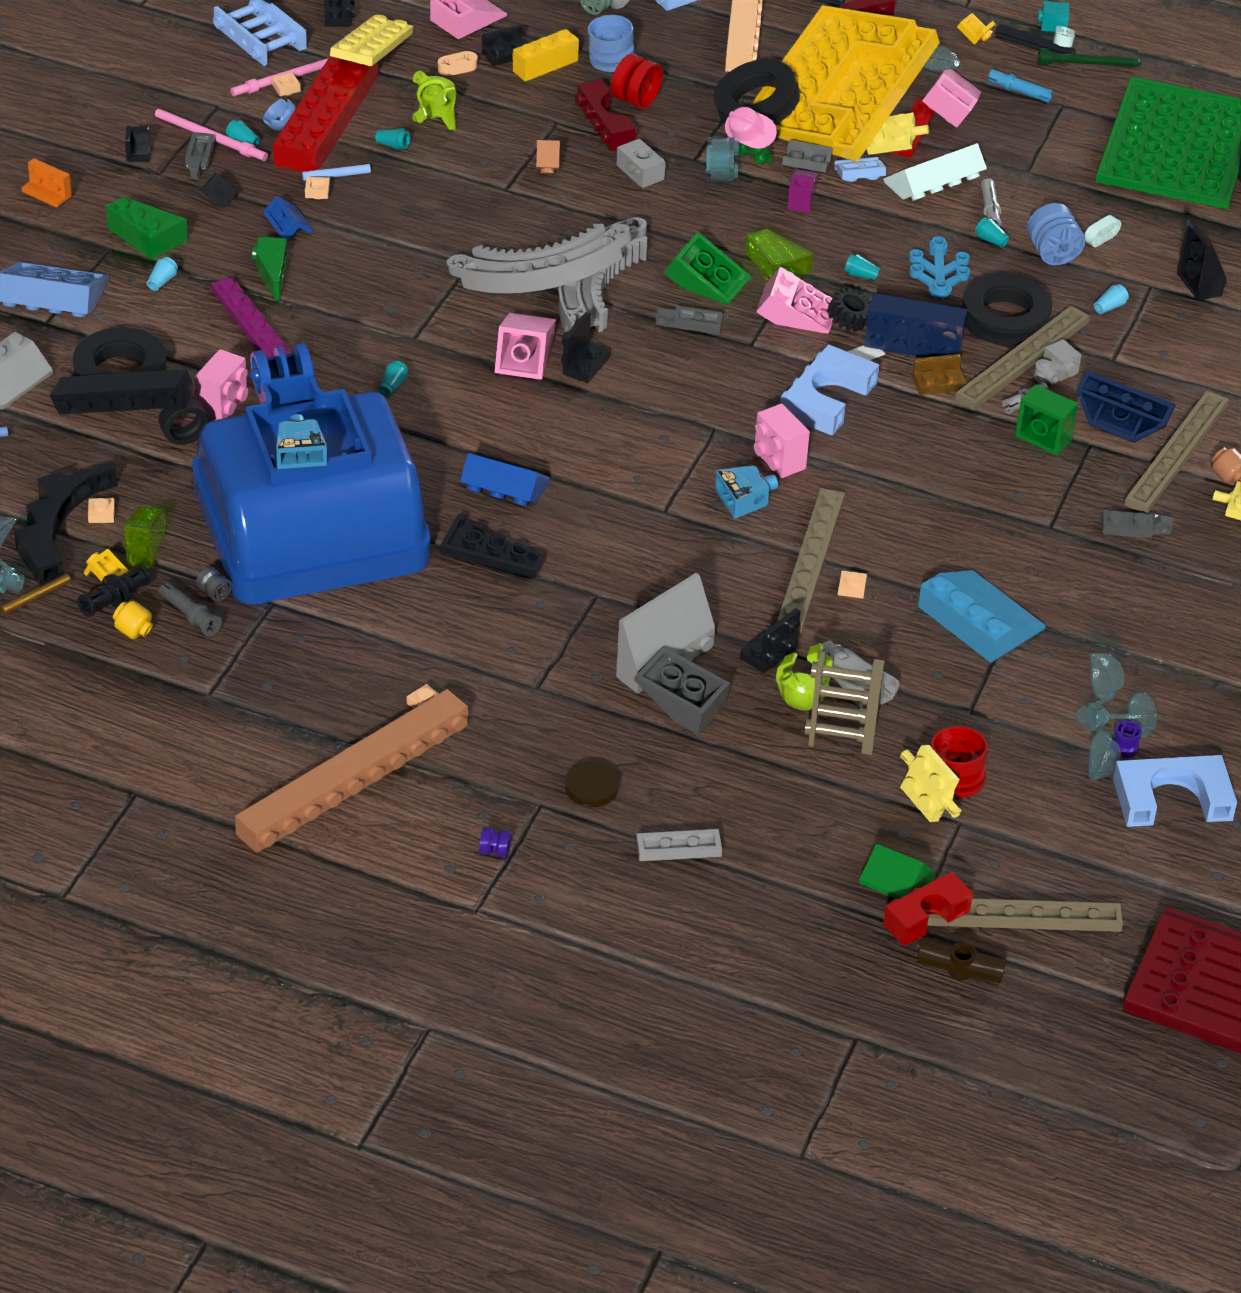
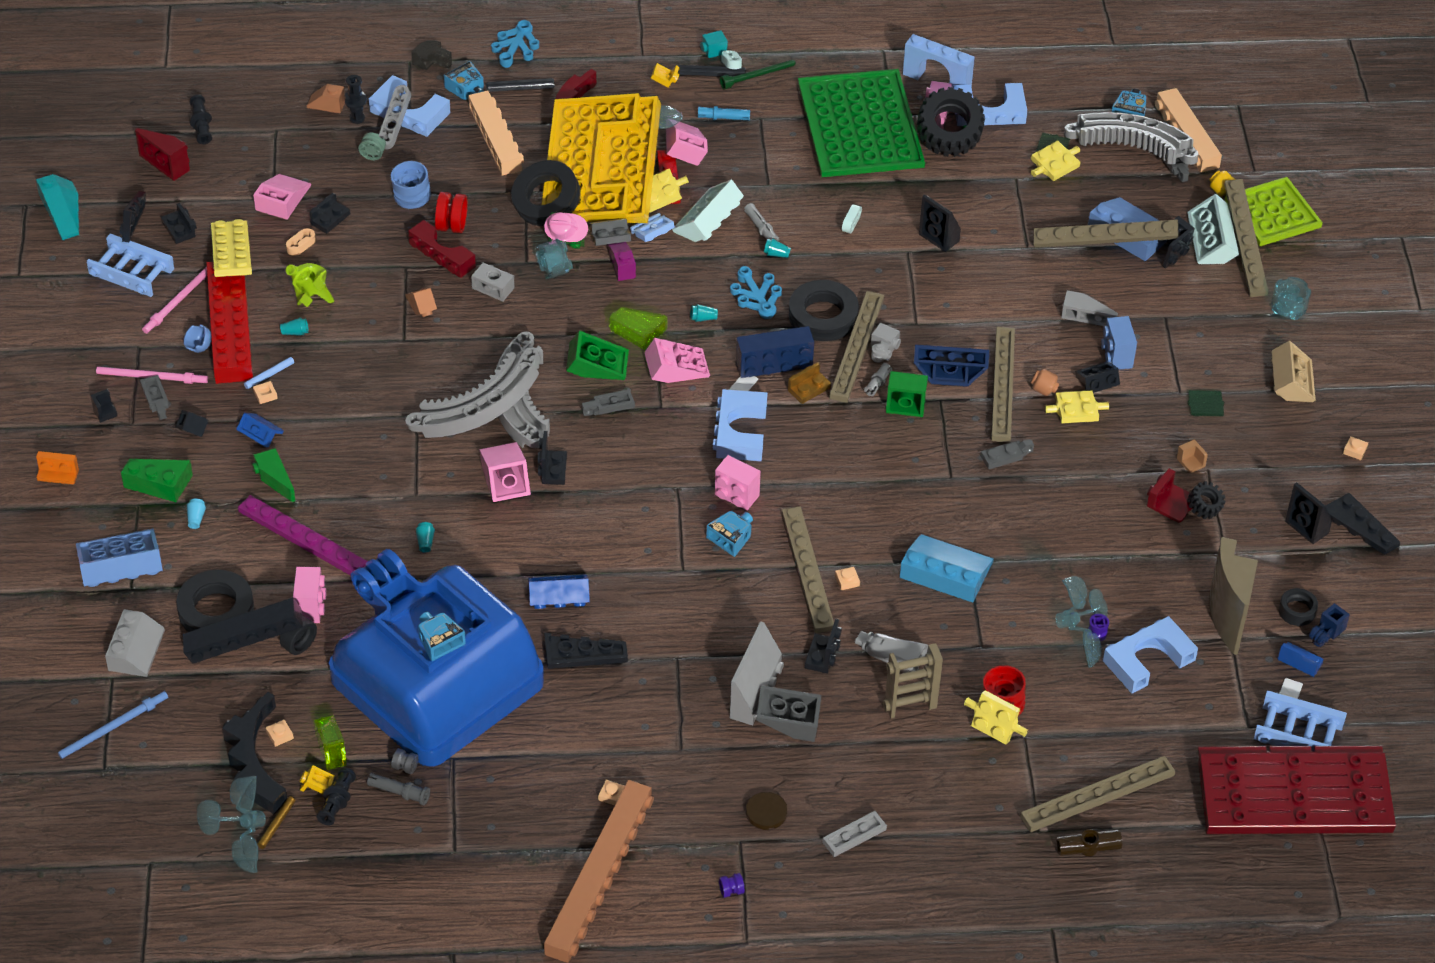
camera: 25 degrees left, 5 degrees up
(132, 619) = (365, 815): yellow head -> none
(241, 132) = (176, 365): teal cone -> none
(286, 84) = (182, 308): light nougat plate -> none
(545, 55) = (365, 211): yellow brick -> none
(798, 688) = (872, 677): lime piece -> none
(849, 309) = (711, 347): black tyre -> none
(894, 873) = (1011, 797): green slope -> none
(943, 896) = (1056, 801): red arch -> none
(1055, 234) = (825, 235): medium blue wheel -> none
(1113, 298) = (890, 274): medium azure cone -> none

